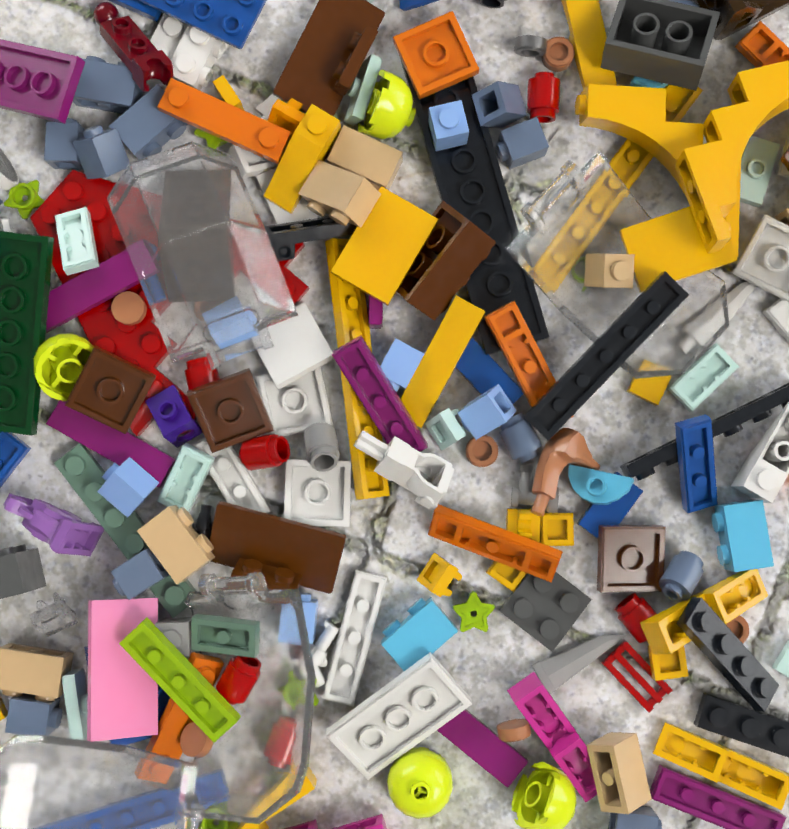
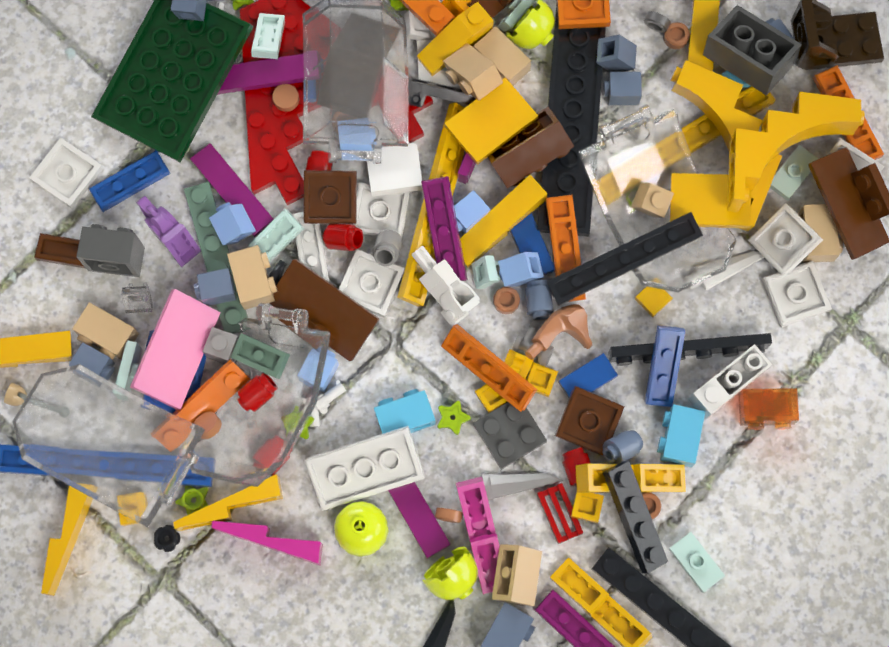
camera: 20 degrees right, 10 degrees down
(60, 364) = (227, 131): neon yellow cylinder -> none
(110, 389) = (248, 149): reddish brown tile -> none
(173, 416) = (286, 187): dark purple bracket -> none
(180, 680) = (215, 370): lime plate -> none
(354, 637) = (355, 401): white tile -> none
(438, 575) = (436, 377): yellow tile -> none
(448, 125) = (572, 53): light blue brick -> none
(543, 97) = (653, 61): red brick -> none
(598, 486) = (585, 357): medium azure plate -> none
(703, 377) = (696, 308): light aqua plate -> none

